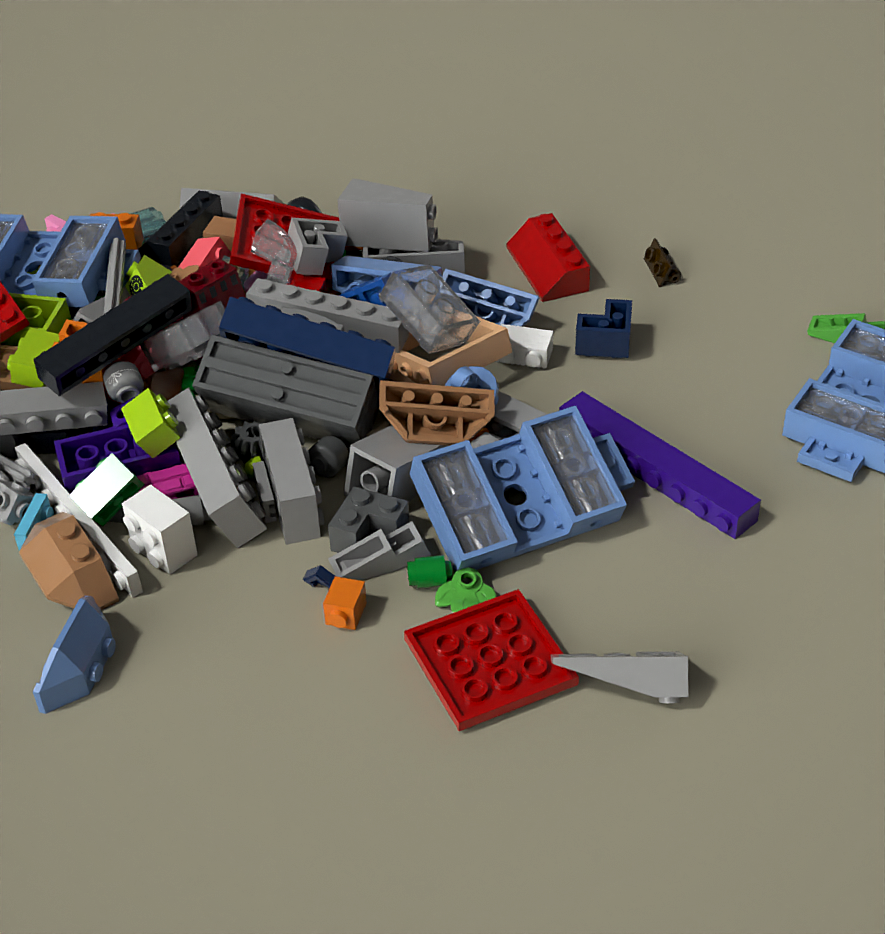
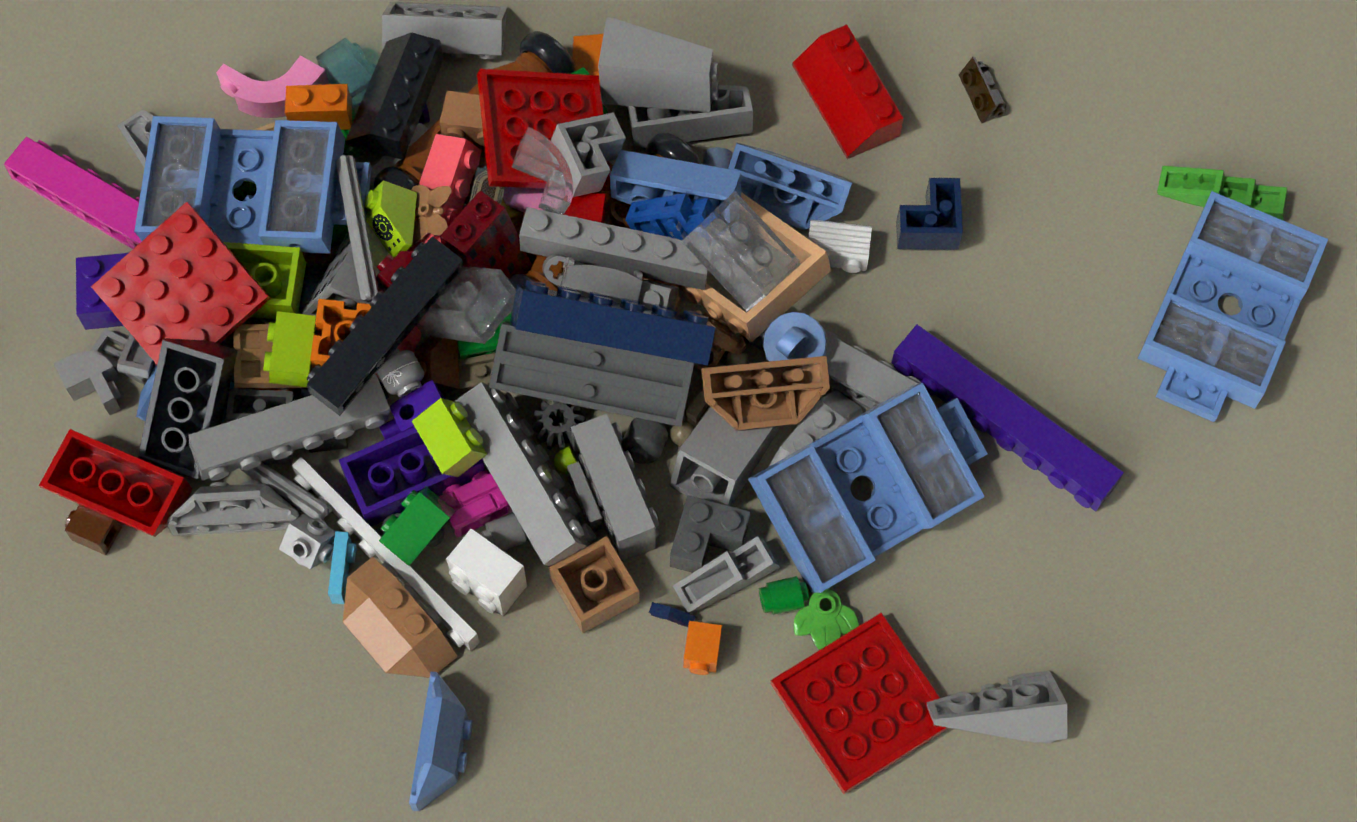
camera: 10 degrees left, 25 degrees up
(255, 547) = (594, 584): none -> medium nougat brick

